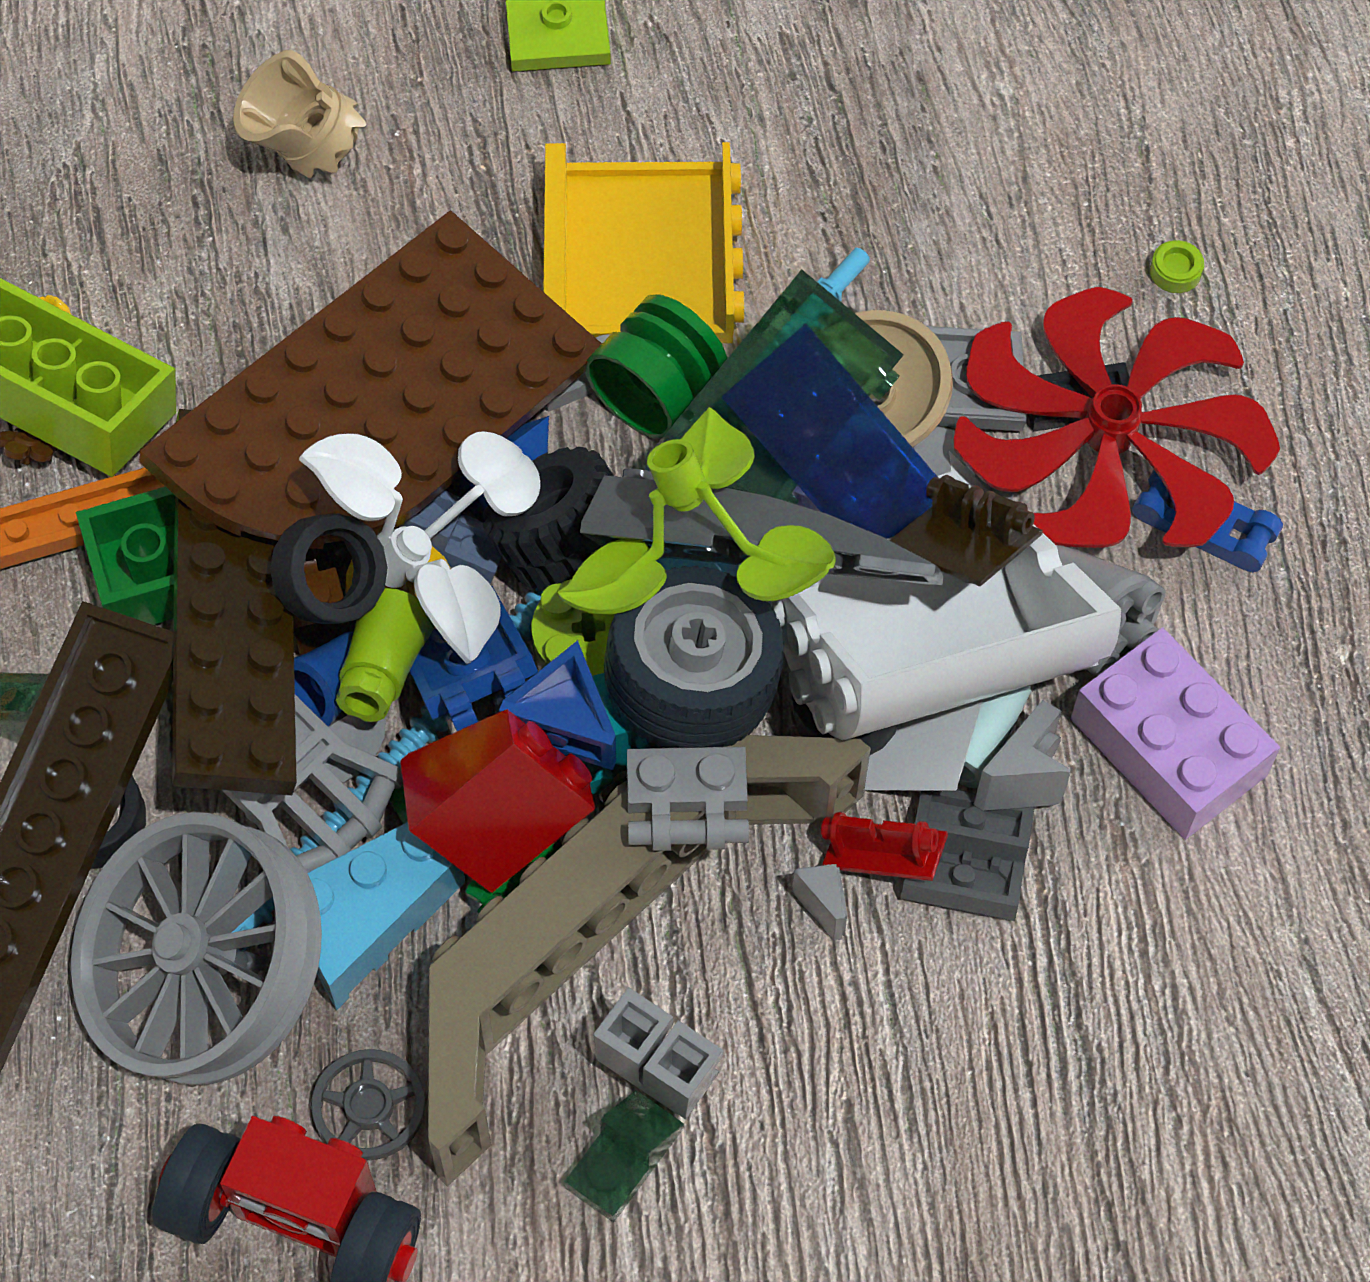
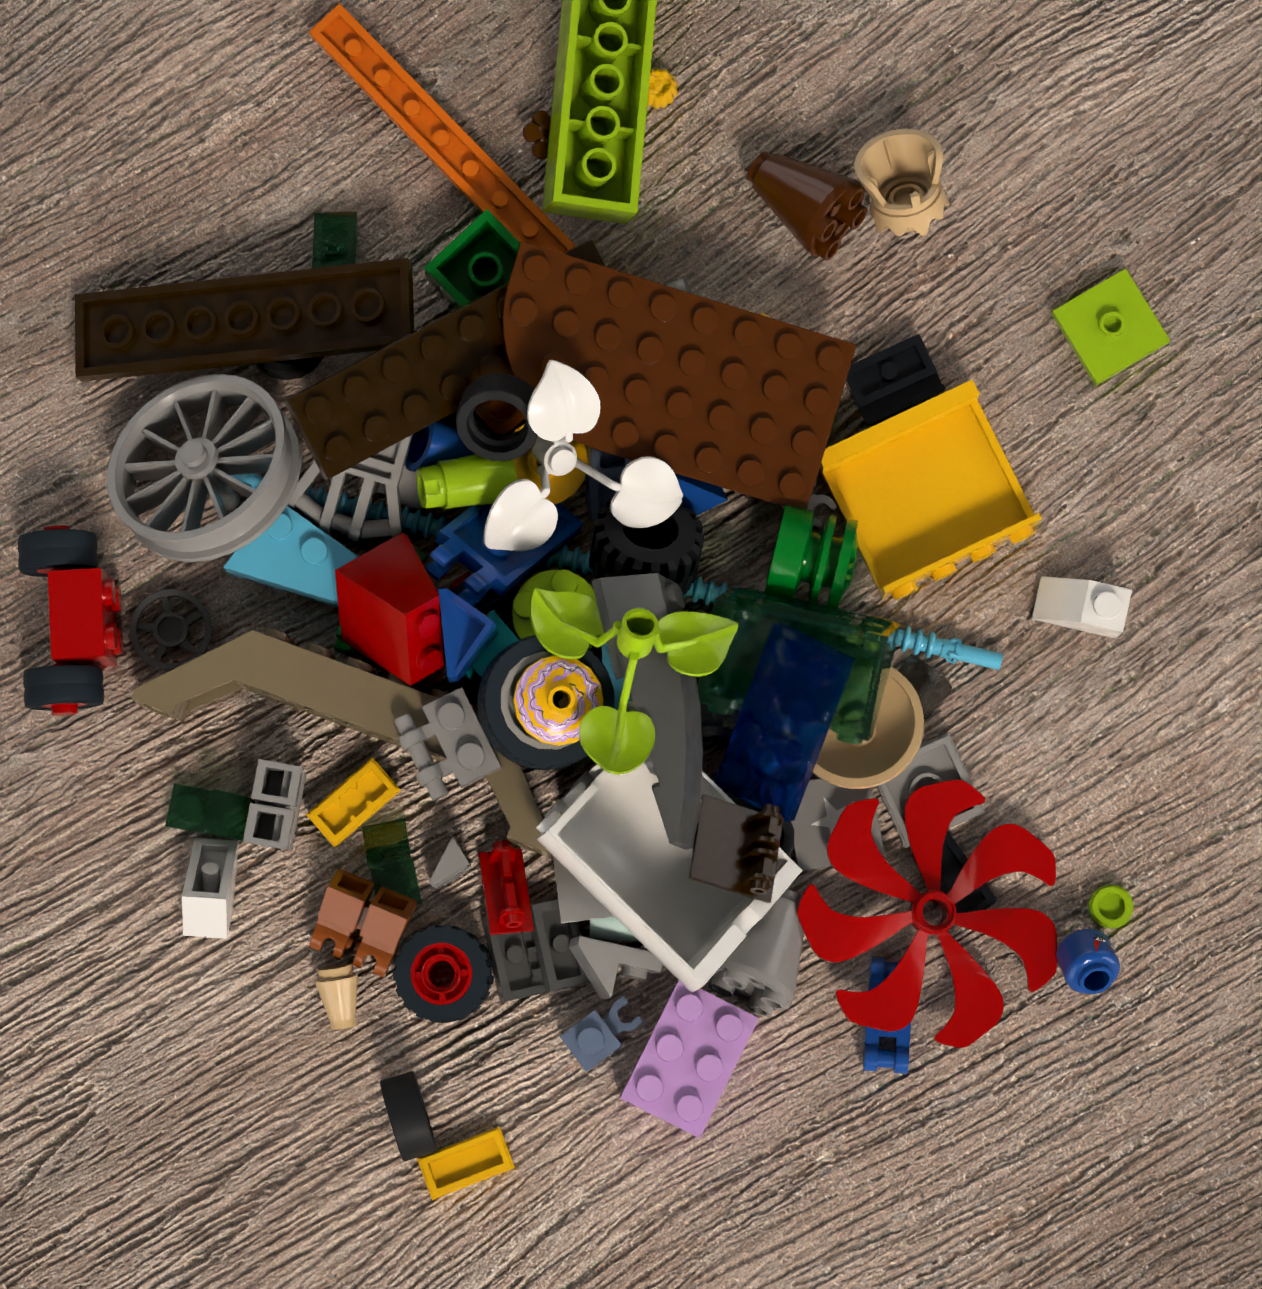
camera: 65 degrees right, 20 degrees up
(259, 217) = (809, 201): none -> reddish brown cone
(507, 219) = (893, 381): none -> black plate
(694, 976) = (353, 802): none -> yellow plate
(699, 641) = (535, 699): none -> dish
(721, 1192) = (210, 888): none -> white slope
(789, 970) = (391, 858): none -> clear green slope
(841, 153) = (1082, 605): none -> white slope
(850, 999) = (380, 921): none -> dark orange legs
(924, 1097) = (339, 994): none -> tan cone
(962, 927) = (416, 978): none -> black wheel
(1106, 821) = (595, 1038): none -> sand blue brick
(1117, 1067) = (408, 1116): none -> black tyre
(1196, 1042) = (466, 1163): none -> yellow tile
(1233, 296) = (1088, 961): none -> blue head

